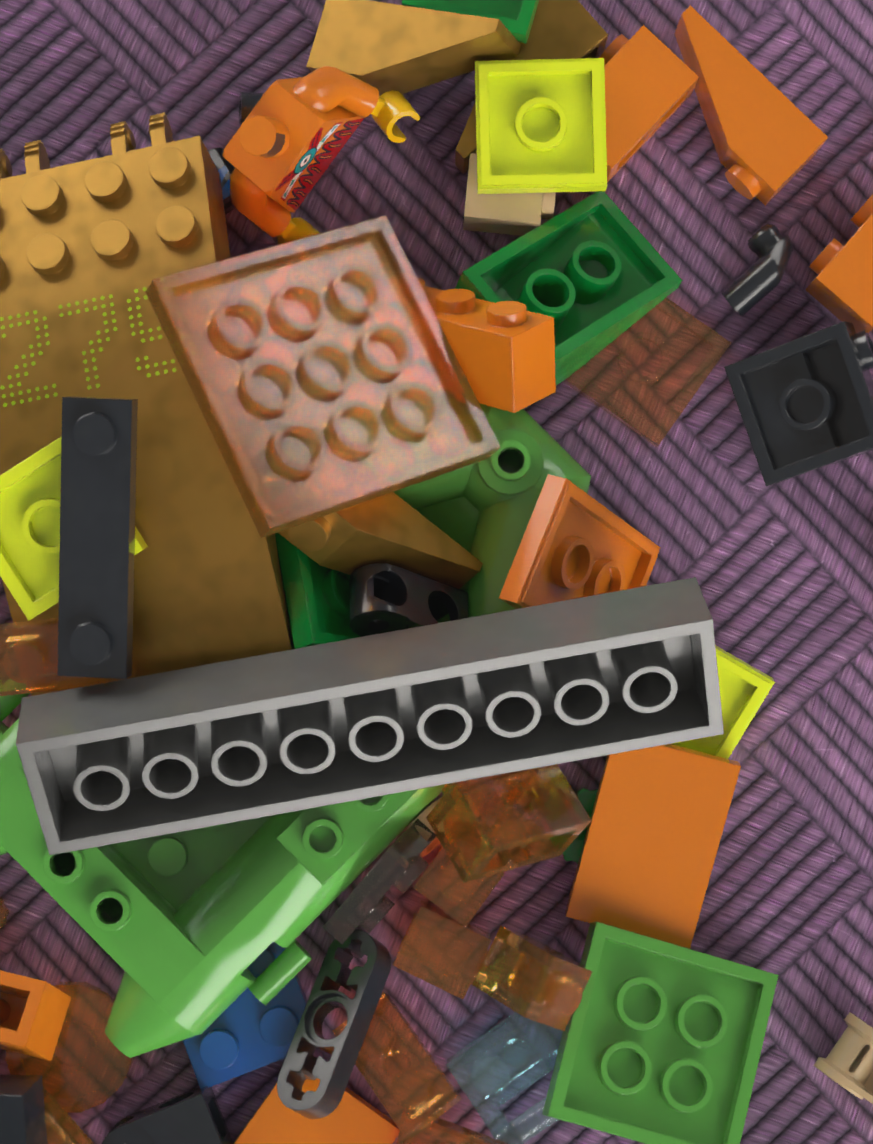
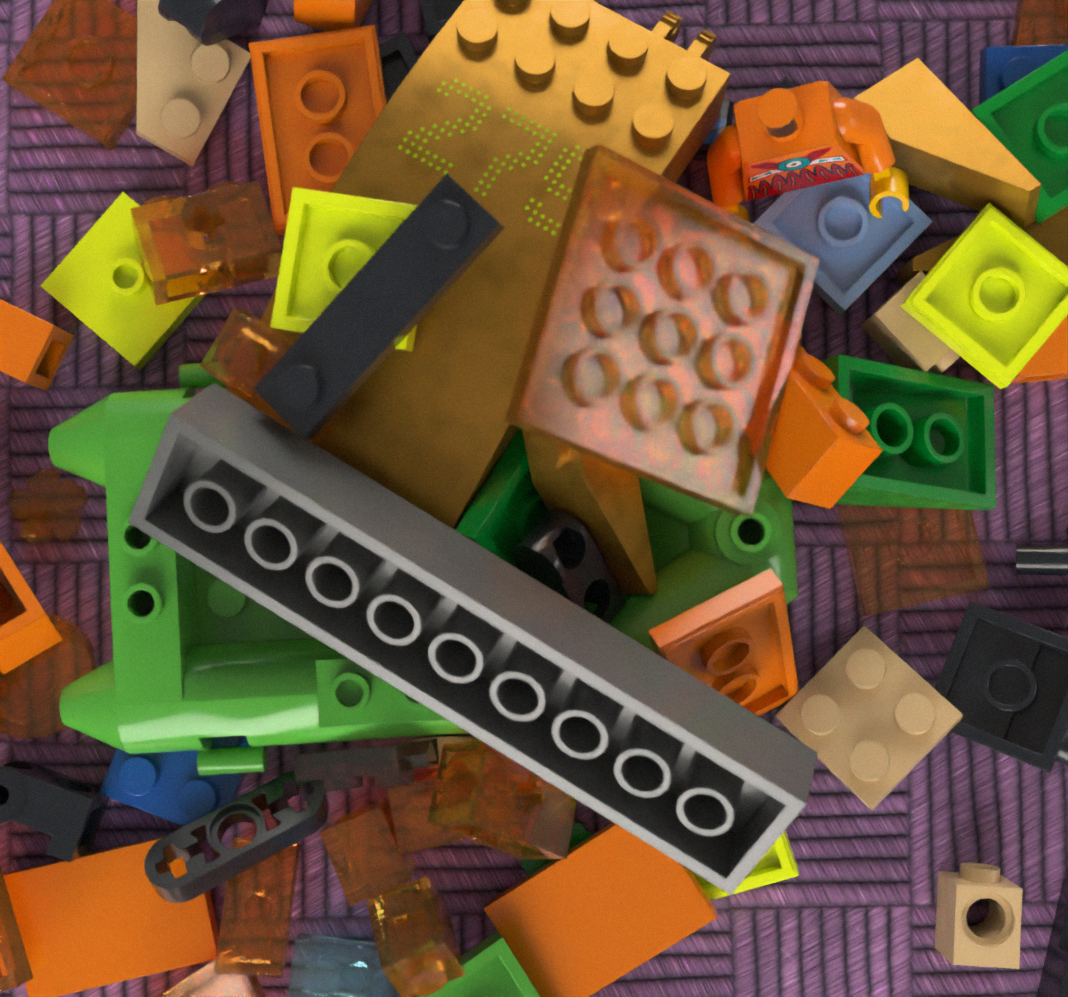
camera: 45 degrees right, 0 degrees up
(388, 178) = (842, 232): none -> light blue plate
(724, 519) = (869, 717): none -> tan plate

